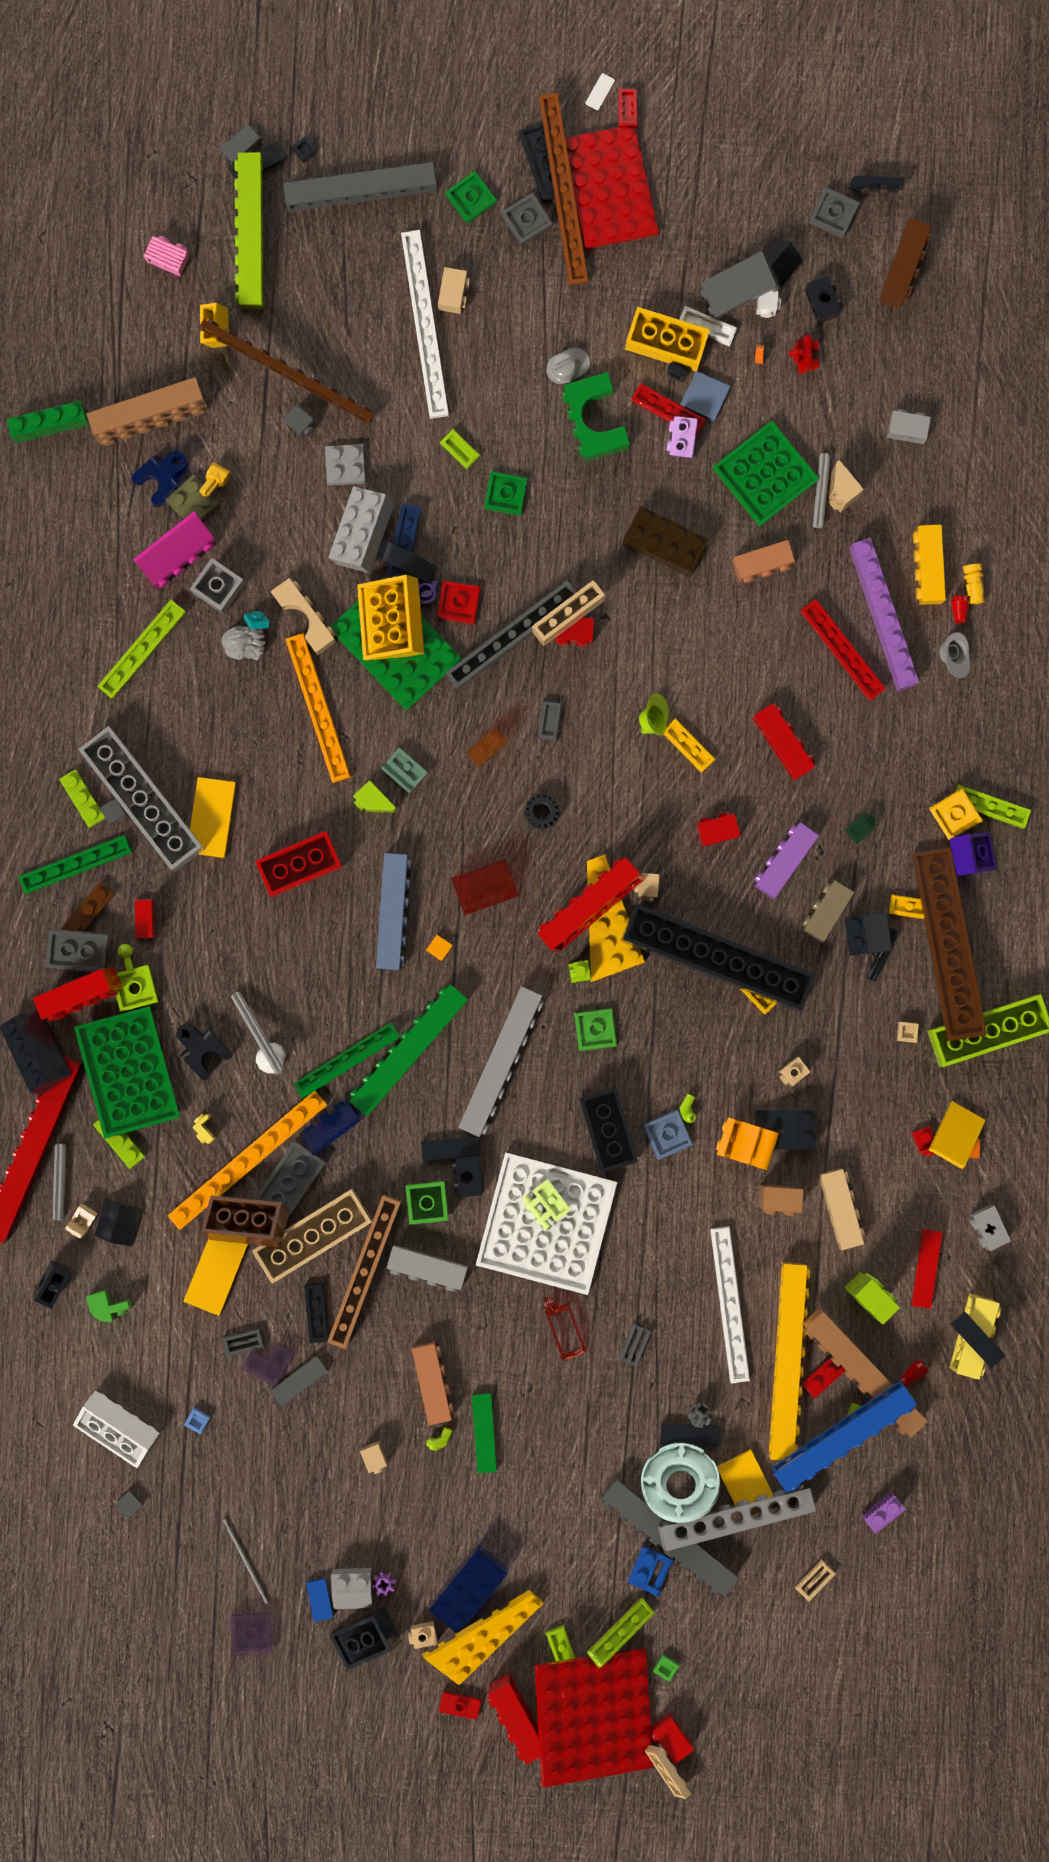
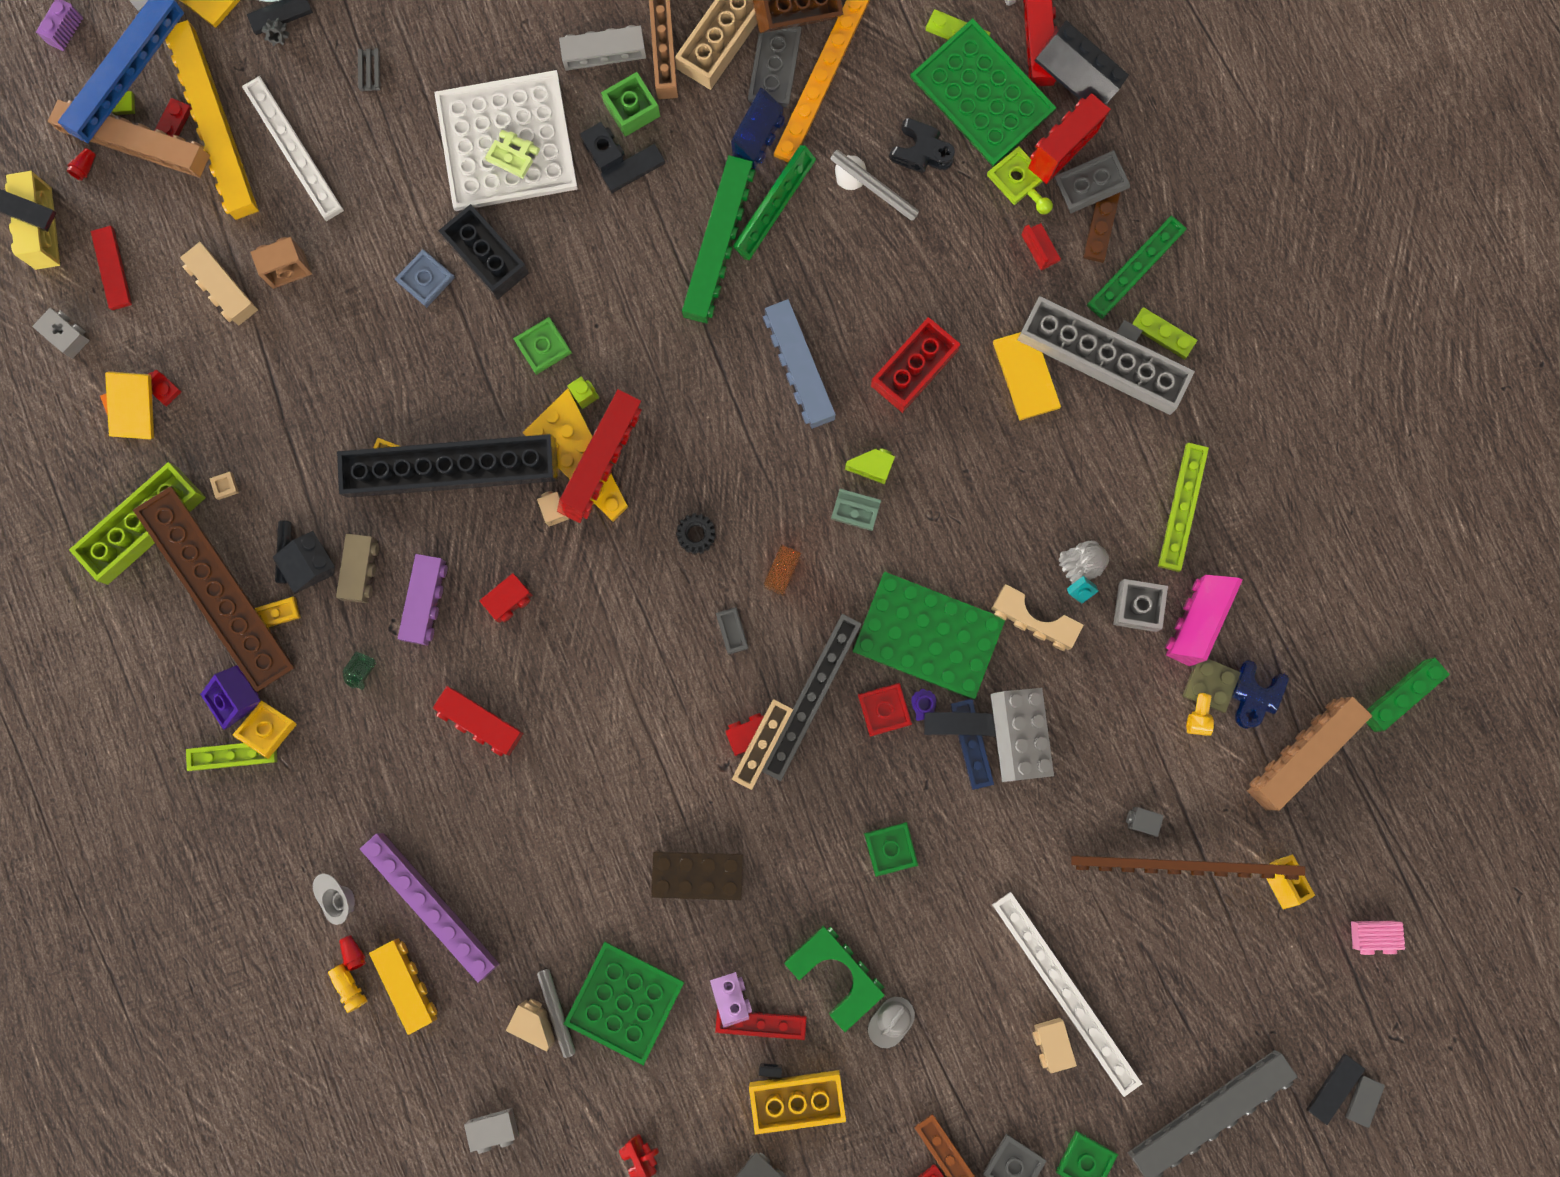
camera: 160 degrees right, 5 degrees down
(204, 1134) = (880, 72): light yellow bracket -> none
(249, 231) = (1305, 1007): lime brick -> none
(304, 149) = (1293, 1129): black tile -> none
(318, 708) = (975, 533): light orange tile -> none
(345, 464) = (1074, 799): light grey plate -> none
(390, 618) = (945, 654): yellow slope -> none
(439, 947) = (736, 352): light orange tile -> none
(459, 449) = (962, 874): lime tile -> none
(485, 887) = (719, 432): clear red slope -> none
(503, 1055) = (622, 270): light grey brick -> none
(556, 1308) = (465, 66): clear red sword -> none
(655, 716) = (623, 682): lime piece -> none
(686, 1110) = (416, 309): lime arm -> none
(688, 745) = (577, 672): yellow tile -> none
(705, 396) = (728, 1059): sand blue tile -> none
(719, 330) = (746, 1141): white tile -> none
(747, 1143) = (338, 301): light orange piece -> none
(759, 354) = (689, 1134): orange tile -> none
(763, 562) = (583, 903): nougat brick -> none
(793, 1072) = (323, 393): tan brick -> none
(794, 1127) = (306, 335): black slope -> none
(842, 650) = (458, 848): red plate -> none
(872, 1296) = (145, 203): lime brick -> none

